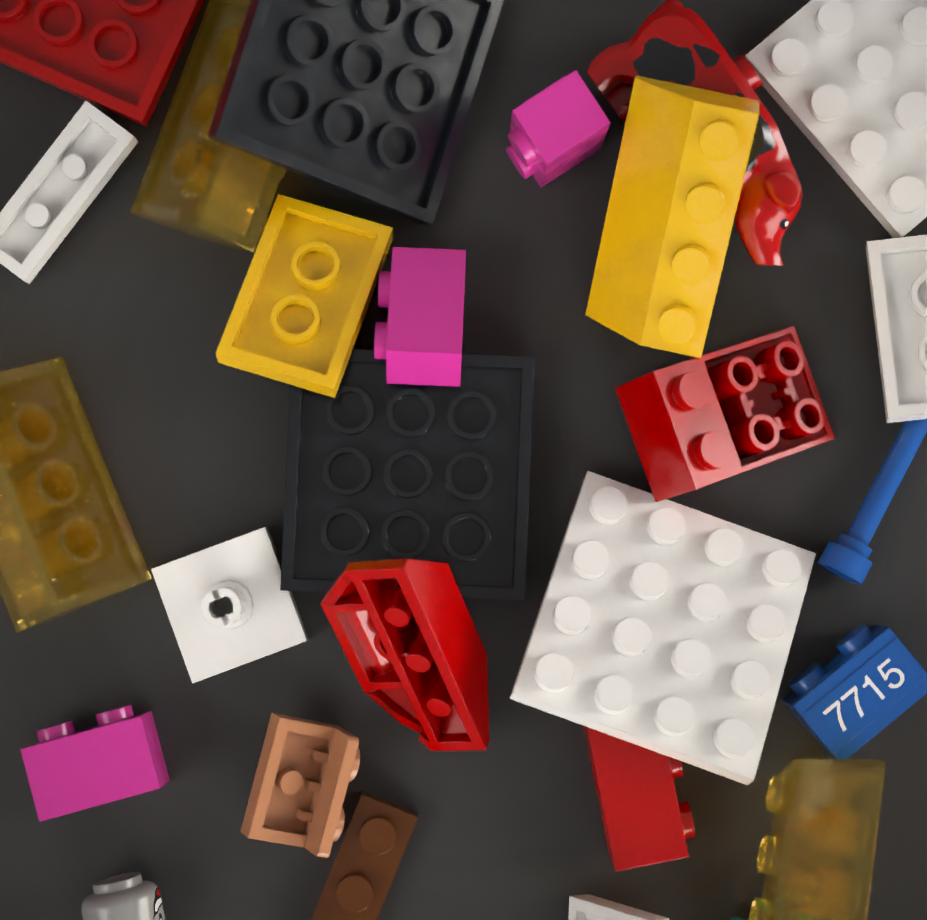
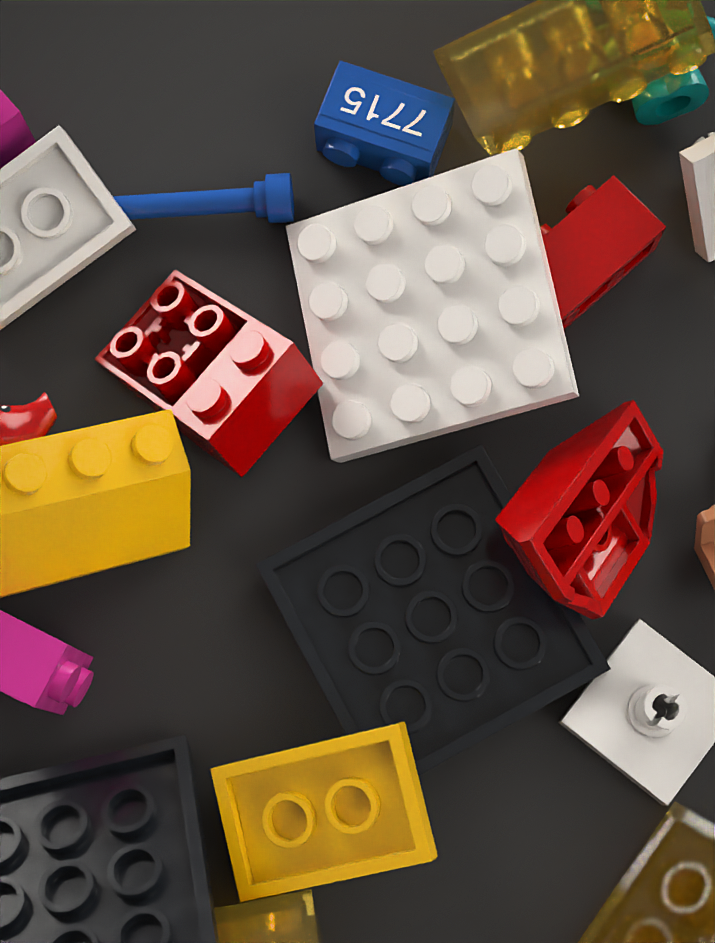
camera: 115 degrees left, 10 degrees down
(424, 316) = (277, 683): dark pink brick -> none

